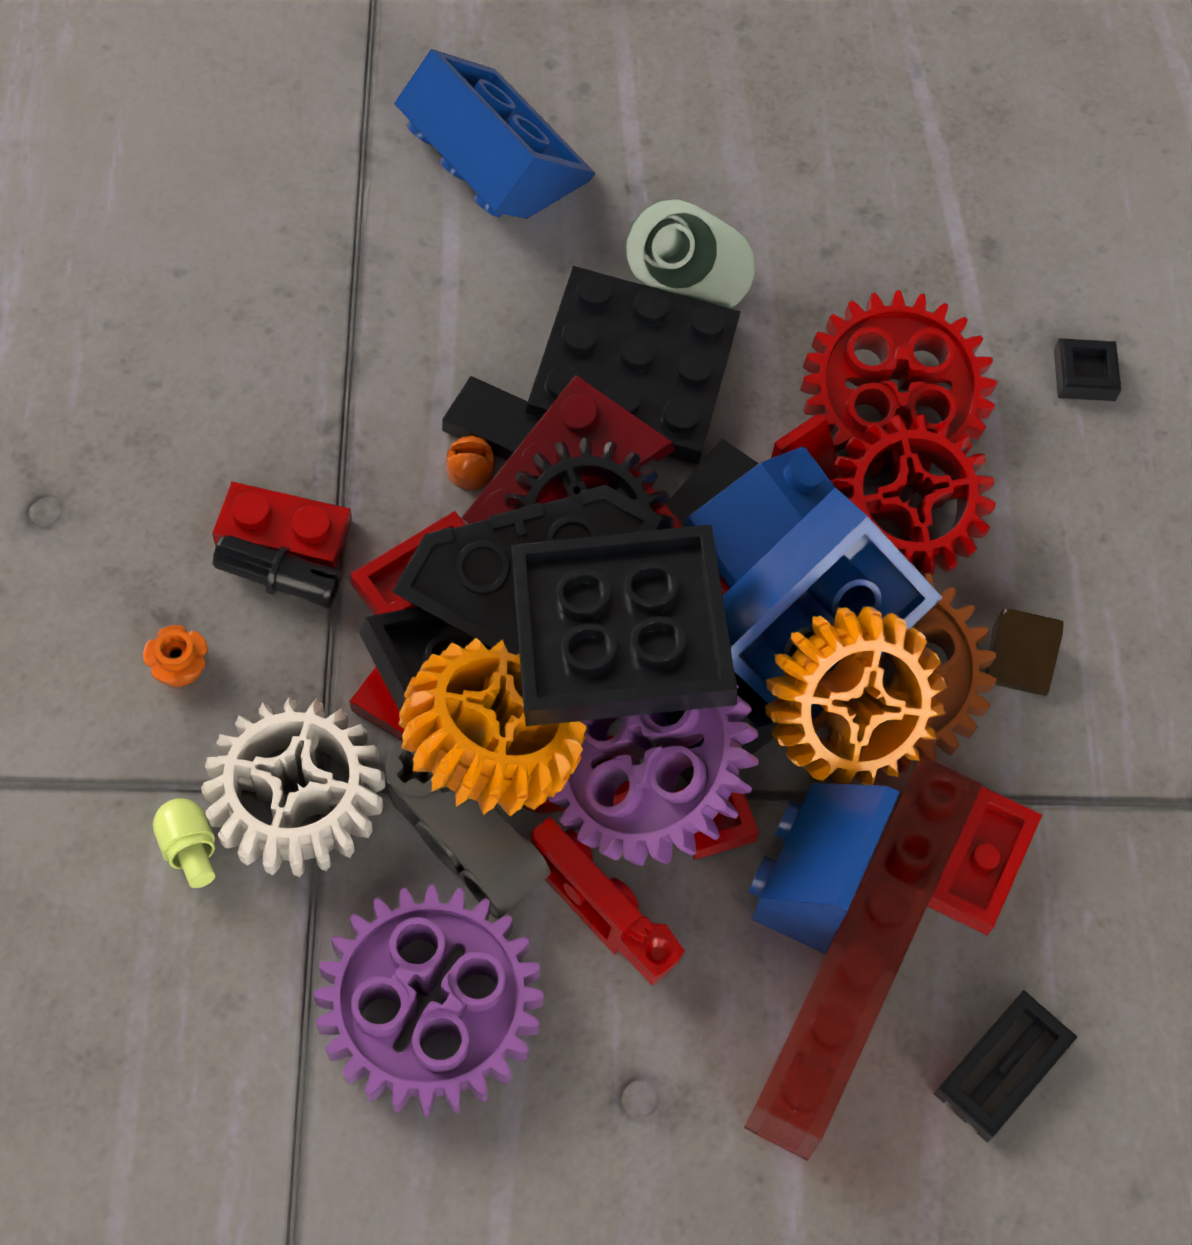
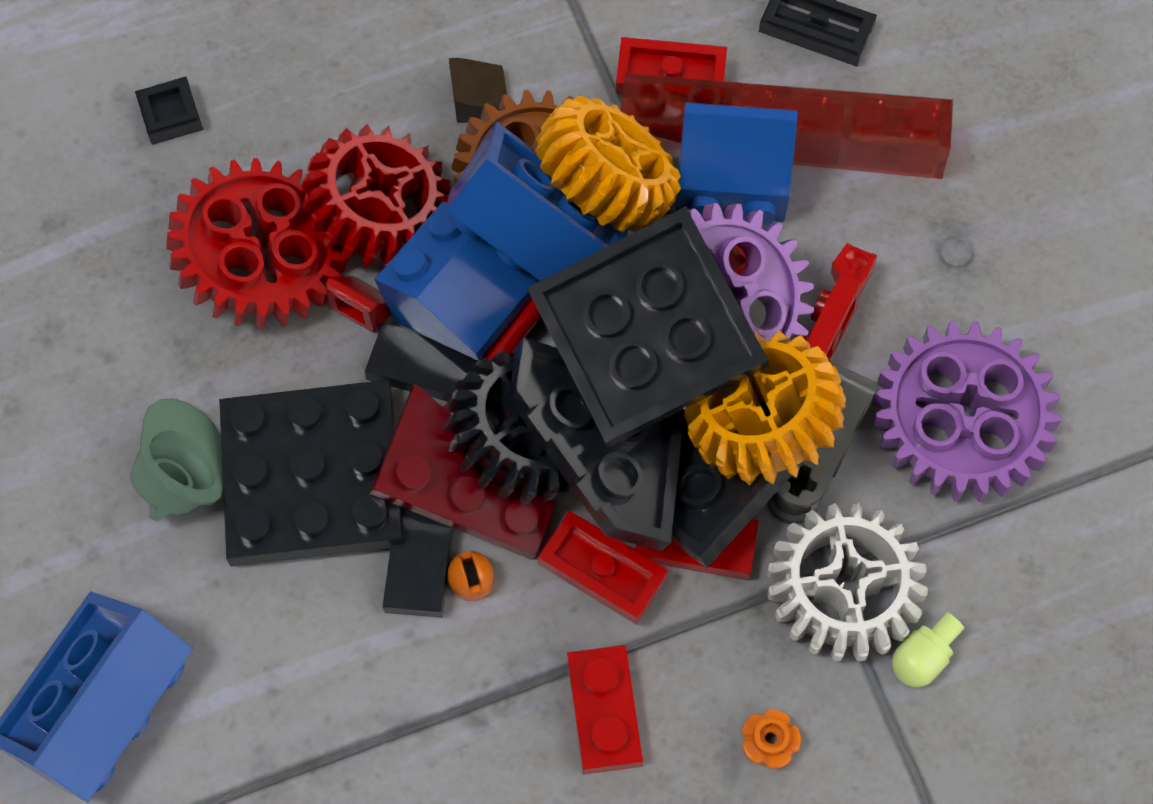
camera: 105 degrees left, 5 degrees up
(277, 570) = (654, 688): black axle -> none

